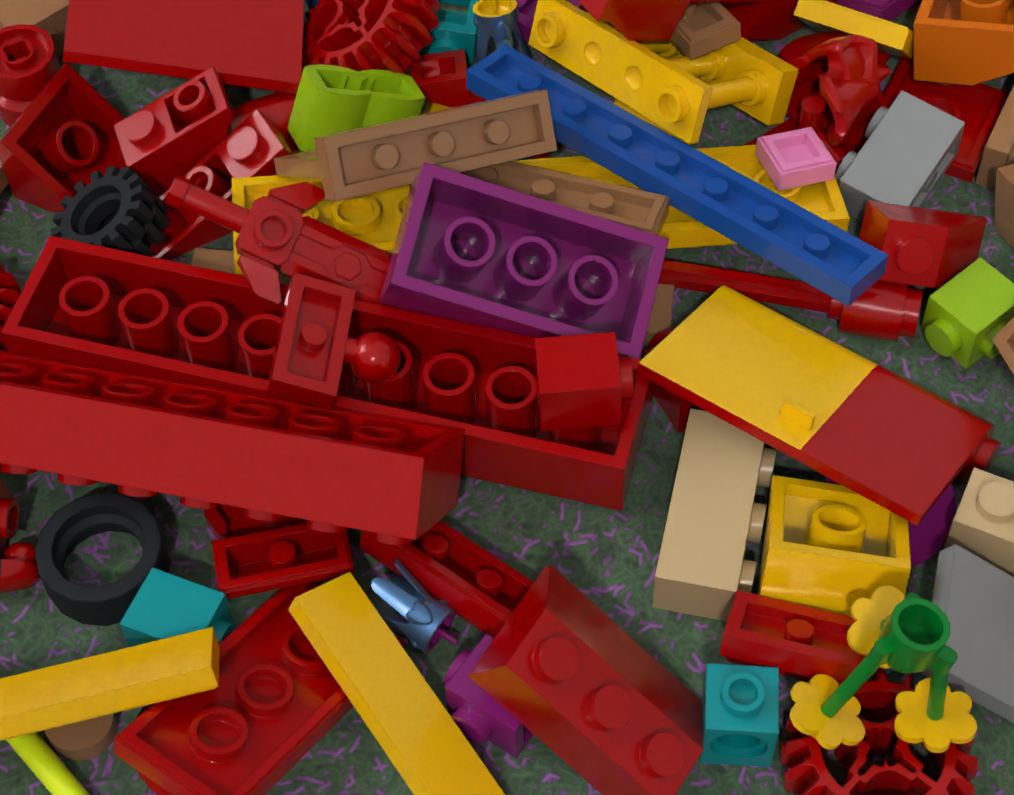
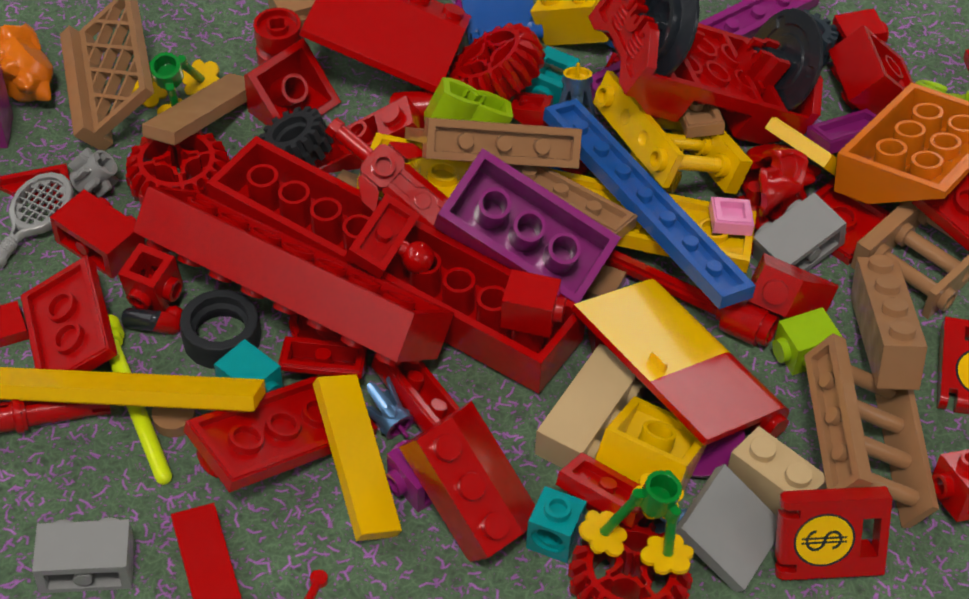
camera: 15 degrees right, 5 degrees down
(175, 130) = (354, 94): red slope -> none

